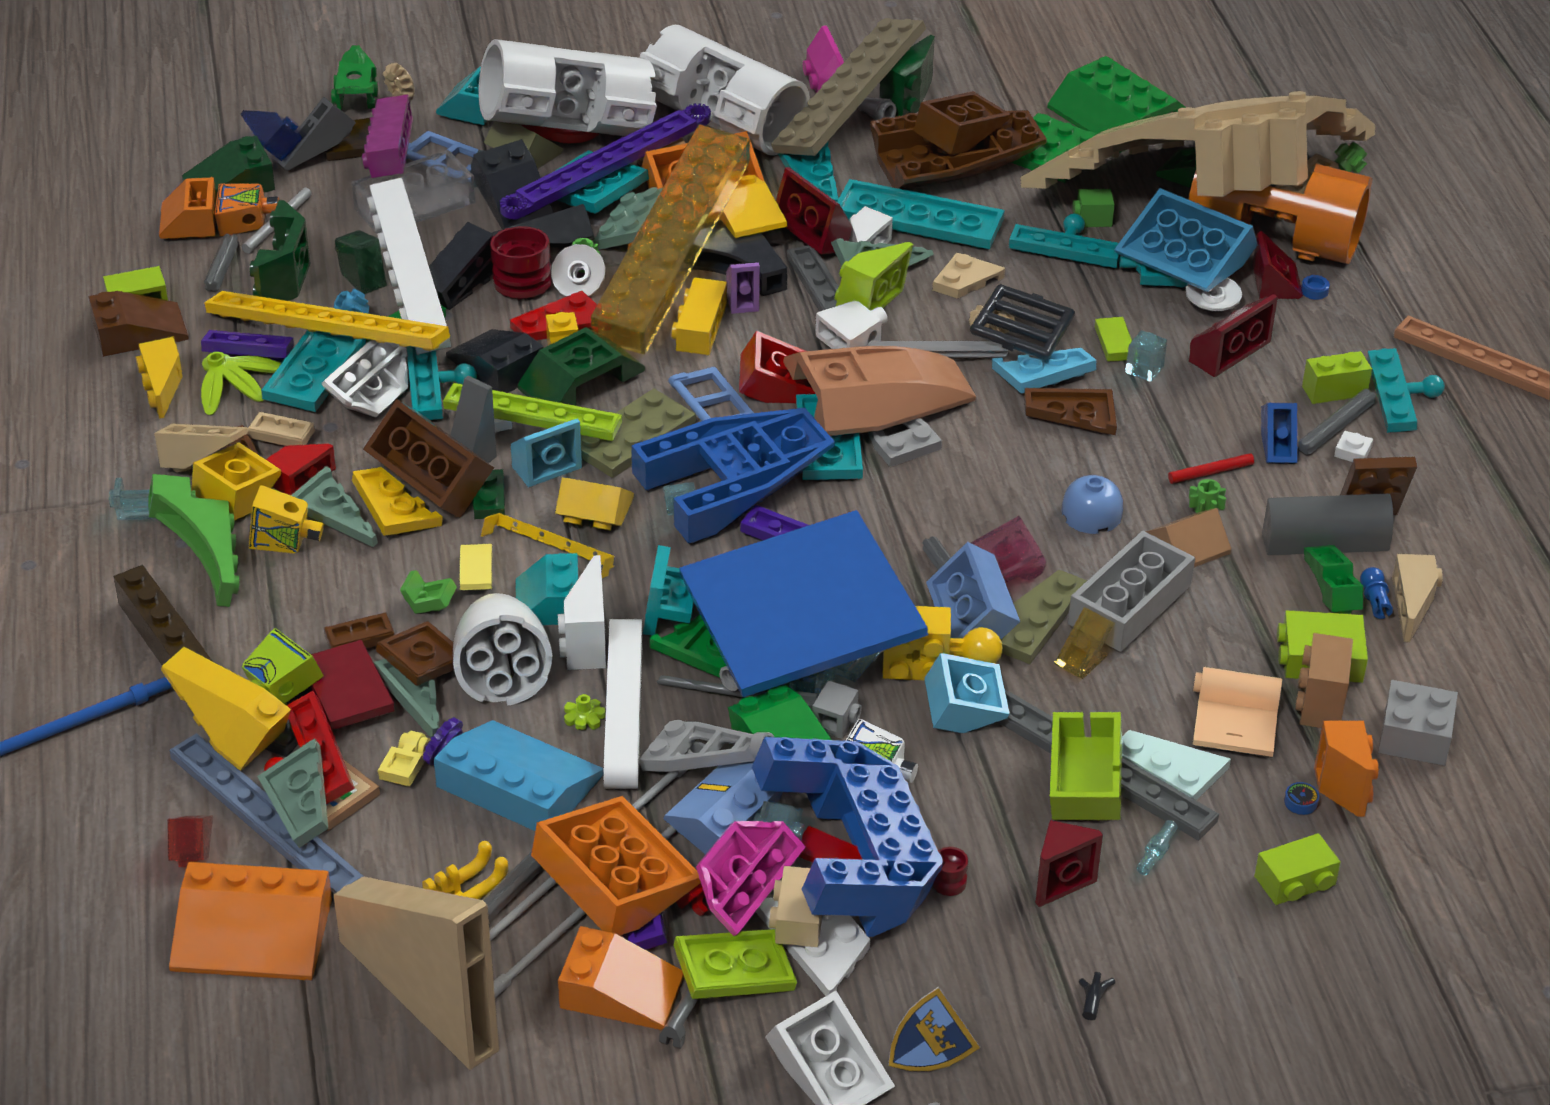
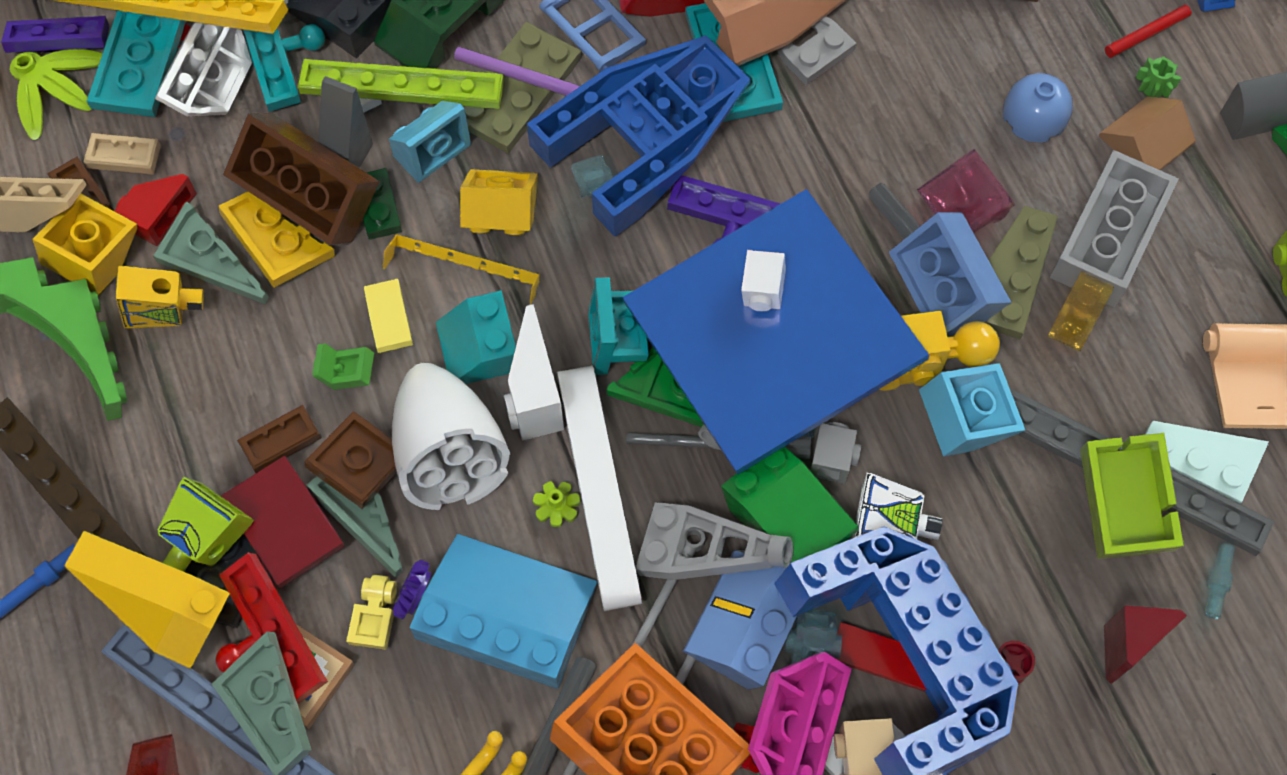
camera: 10 degrees left, 25 degrees up
(628, 414) = (514, 71): none -> medium lavender bar
(800, 559) = (763, 280): none -> white brick

